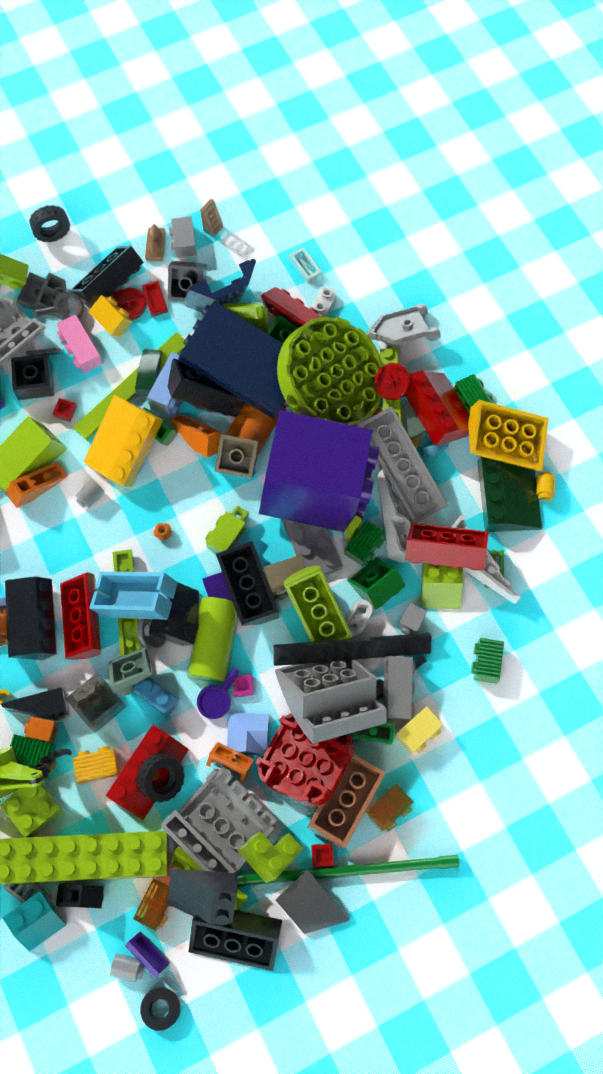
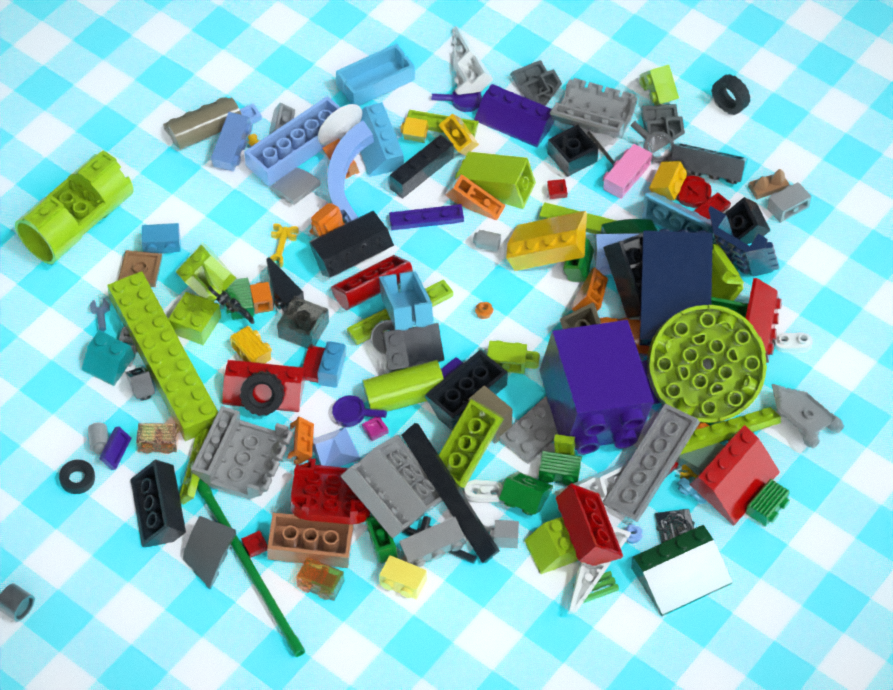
camera: 65 degrees right, 15 degrees down
(29, 536) = (426, 217): none -> dark purple tile
(128, 671) = (339, 331): sand green slope -> none
(142, 711) = (312, 363): none -> red tile
(157, 327) = (672, 215): none -> medium azure slope
(204, 894) = (180, 459): black slope -> none
(211, 218) = (820, 213): medium nougat slope -> none
(268, 858) = (231, 500): lime brick -> none
(307, 278) = (819, 322): light aqua tile -> none
(392, 381) = (730, 417): red tile -> none
(454, 509) = (634, 538): none -> light blue plate
(459, 478) = (673, 523): none -> piece
(488, 660) = (499, 610): green brick -> none
(507, 435) = (735, 539): yellow slope -> none
(546, 486) = (707, 600): yellow brick -> none

